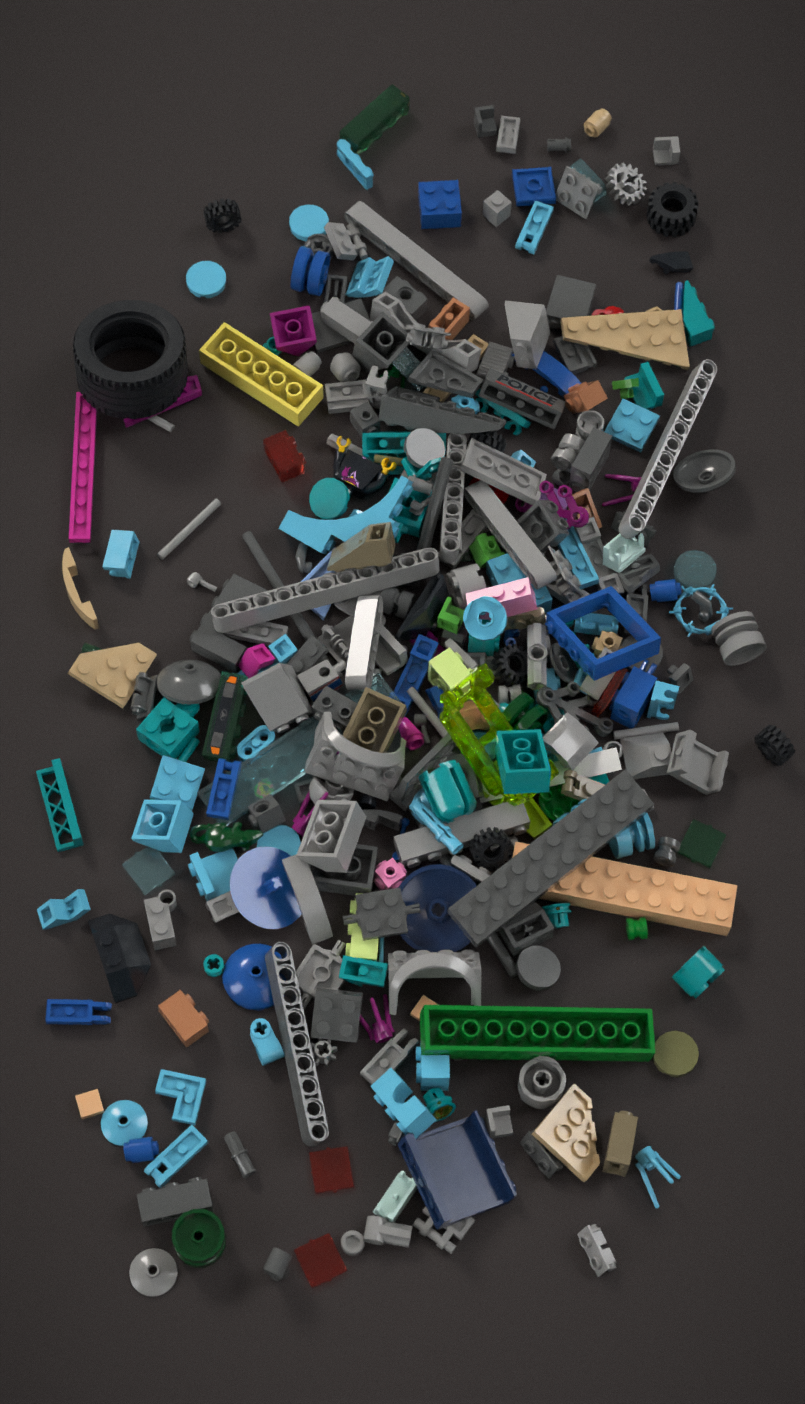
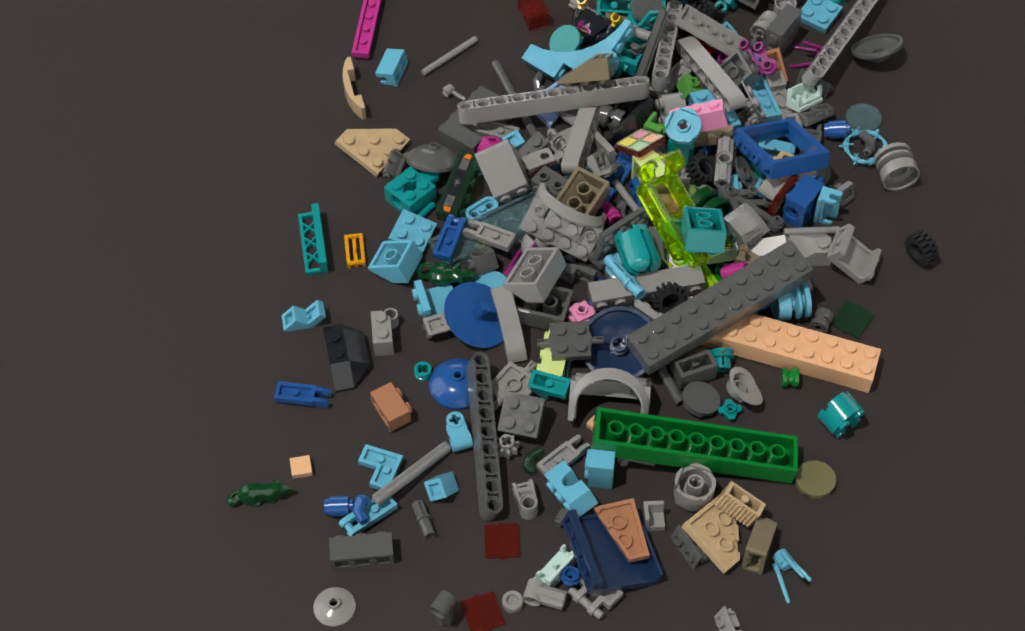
camera: 10 degrees right, 10 degrees down
(42, 1145) = (255, 493): none -> dark green animal
(115, 830) = (355, 262): none -> light orange tile
(122, 1133) = (337, 487): medium azure dish -> none
(148, 869) = (379, 294): clear light blue piece -> none
(164, 1152) = (358, 508): none -> blue arm
(198, 1252) = (377, 580): dark green wheel -> none
(218, 1100) = (411, 473): none -> light grey axle
(254, 1111) = (441, 486): none -> medium azure panel
(271, 782) = (490, 235): none -> light grey hinge
(351, 1064) = (529, 460): none -> clear green arm
(351, 1112) = (526, 496): none -> light grey piece
(381, 1030) = (558, 434): magenta plant -> none
(392, 674) = (600, 164): none -> light grey bracket
(414, 1202) = (570, 571): none -> blue plate
(435, 642) = (640, 142): none -> tile
(439, 1105) = (605, 494): teal piece -> none
(468, 1142) = (625, 528): none -> nougat wing
(562, 802) = (730, 268): none -> dark pink cone
(569, 982) = (729, 414): none -> teal plate
(585, 949) = (743, 387): none -> light grey piece
(594, 1100) = (740, 504): none -> tan brick

